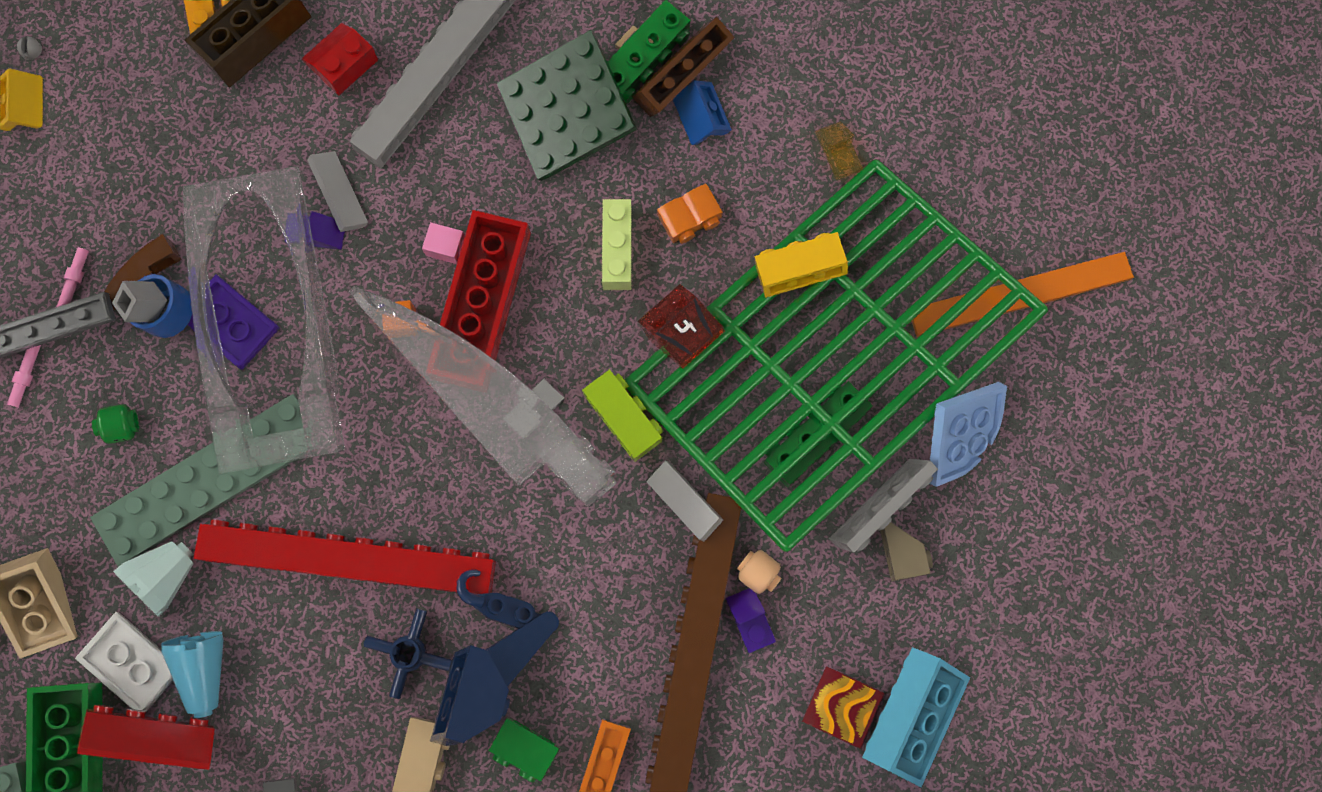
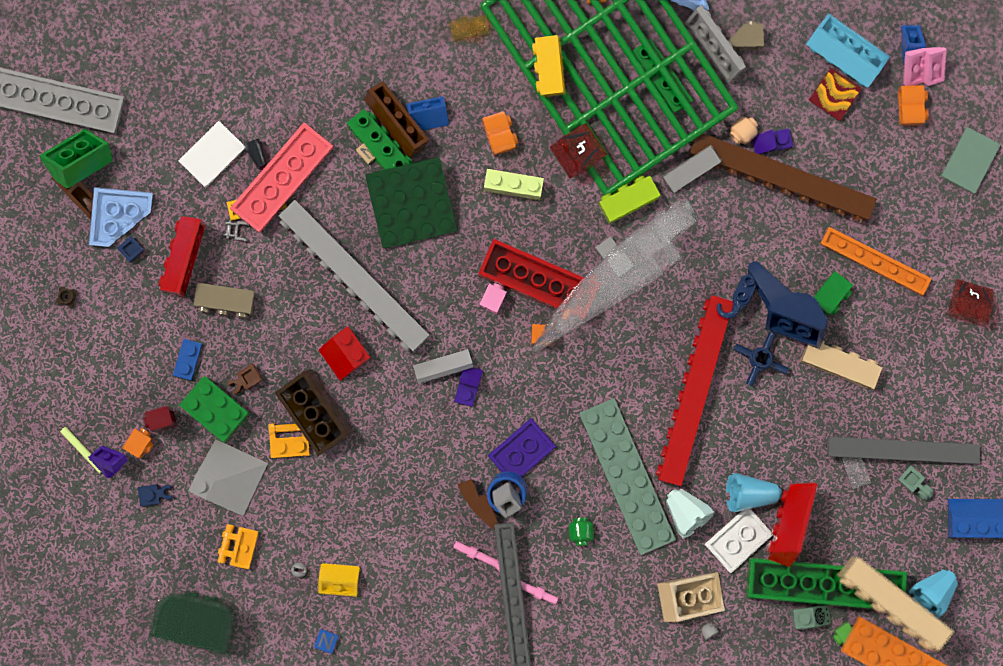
camera: 85 degrees left, 5 degrees up
(230, 421) = (613, 391): clear windscreen -> none

